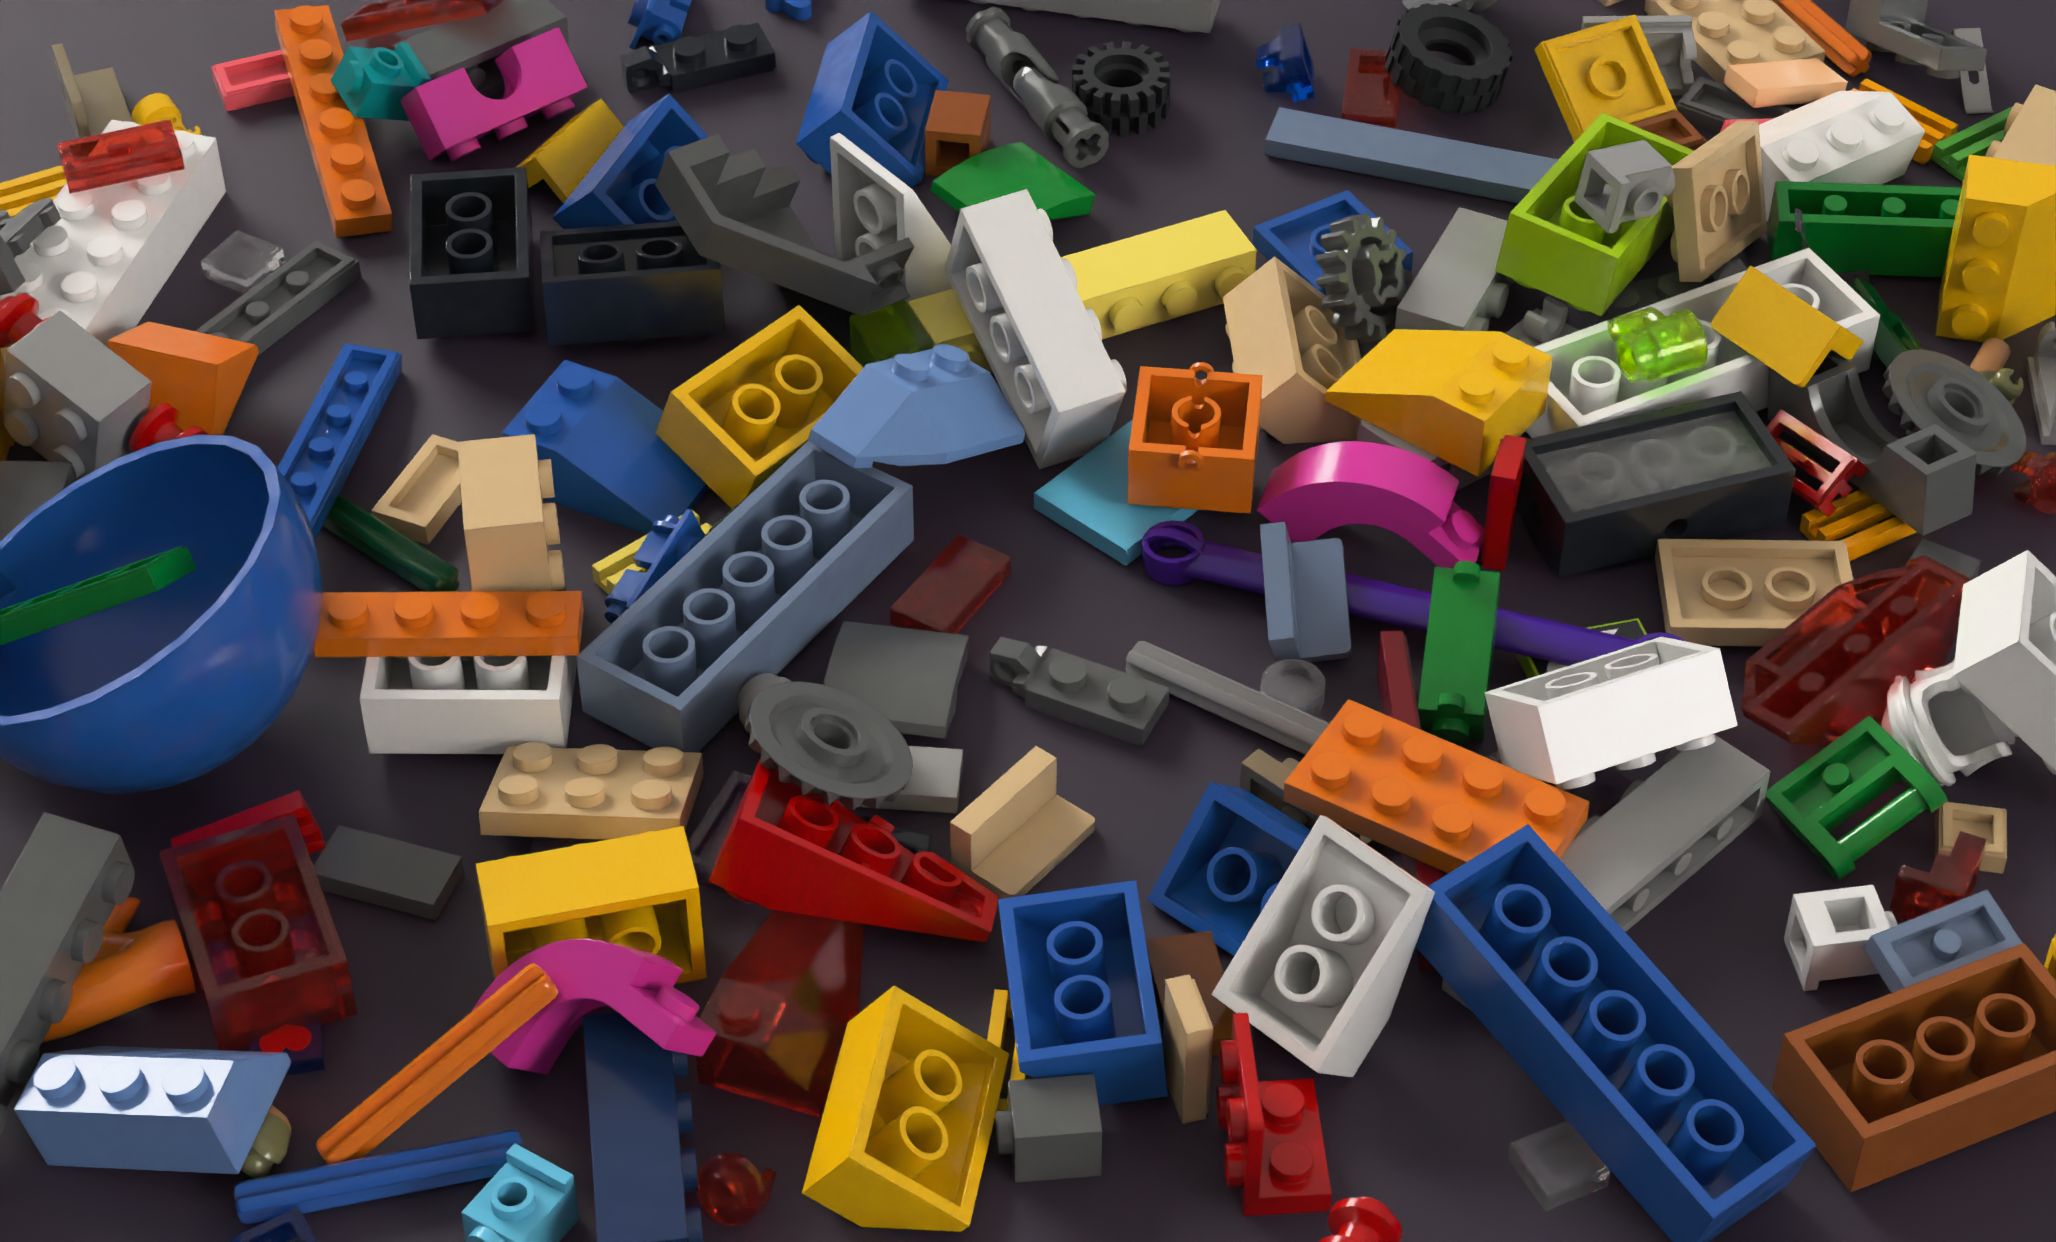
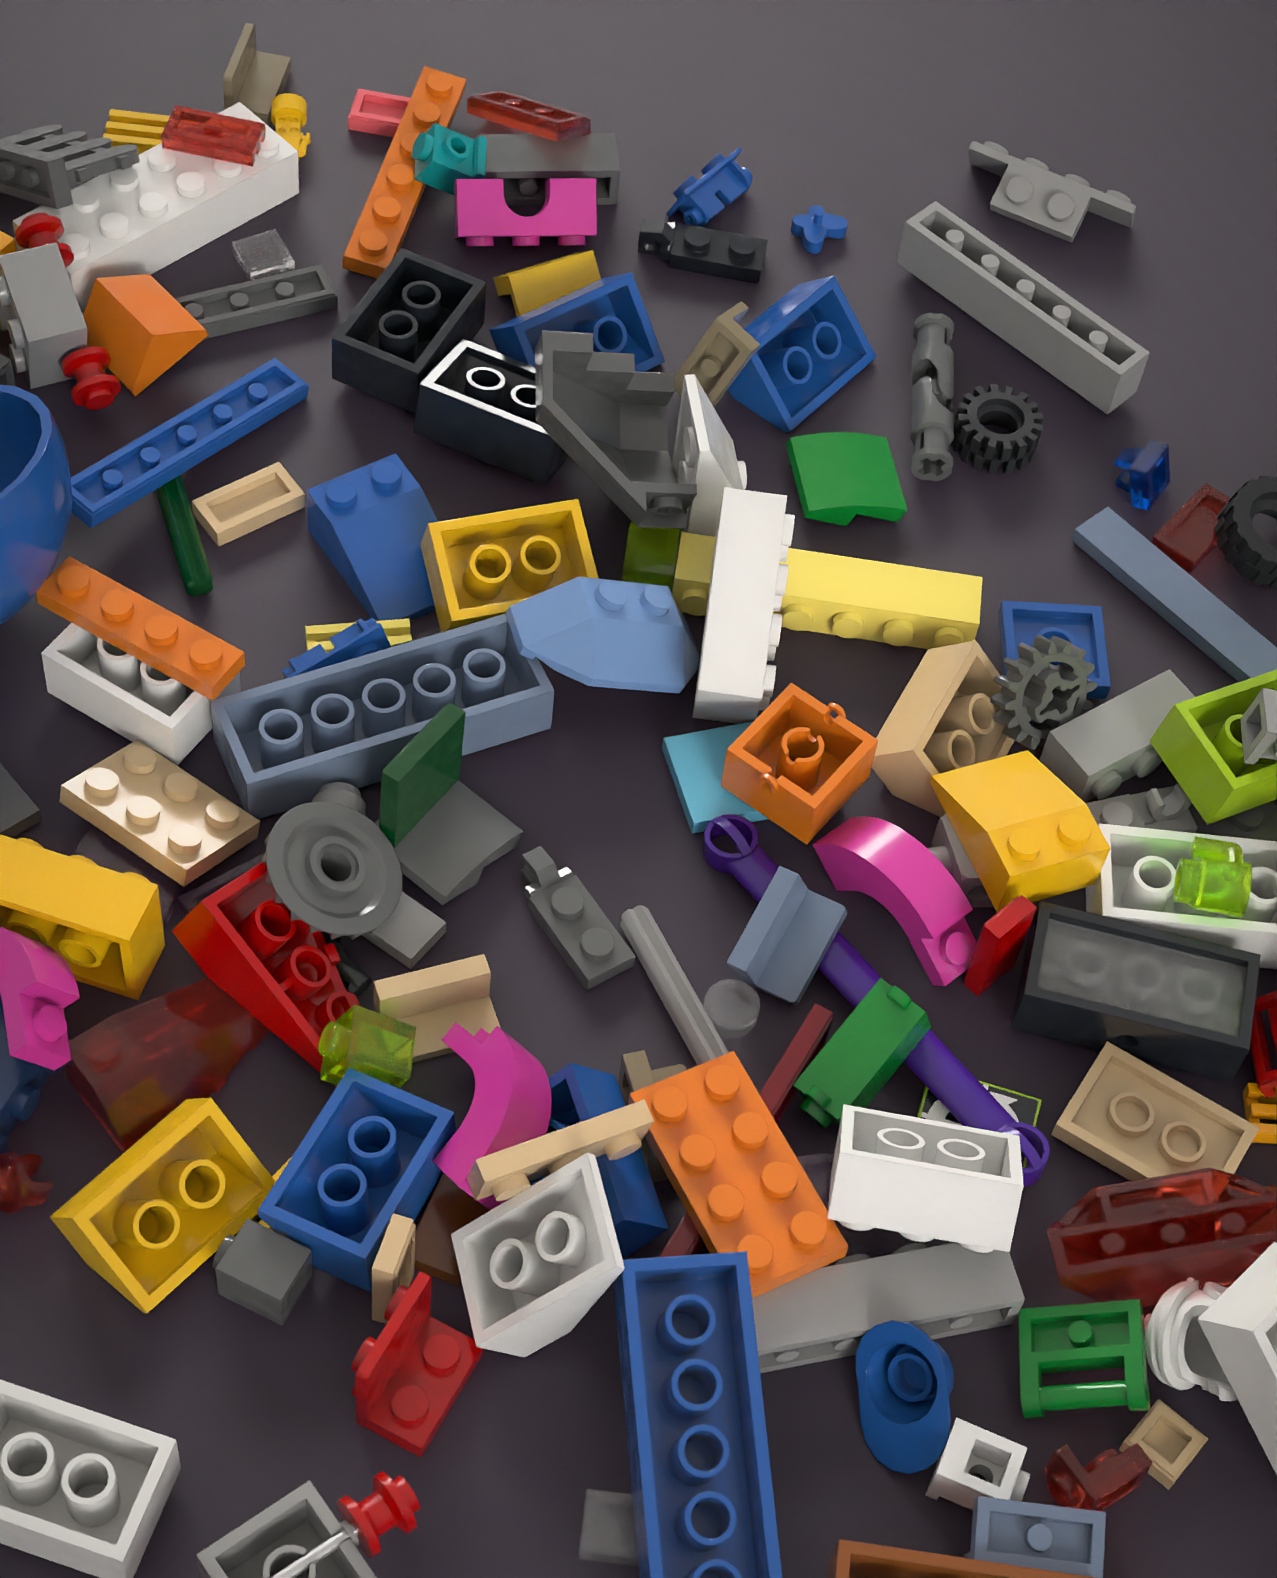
camera: 25 degrees right, 10 degrees up
(506, 517) = (233, 576): tan brick -> none
(806, 146) = (719, 355): none -> dark tan panel
(851, 609) = (421, 773): none -> dark green tile
(951, 587) = (545, 784): clear red tile -> none
(956, 129) = (840, 403): dark orange brick -> none
(989, 871) = (368, 1045): none -> clear neon green brick
(1194, 870) = (507, 1105): none -> dark pink arch
(1250, 878) = (511, 1169): none -> tan plate
(1728, 908) = (904, 1395): none -> blue piece

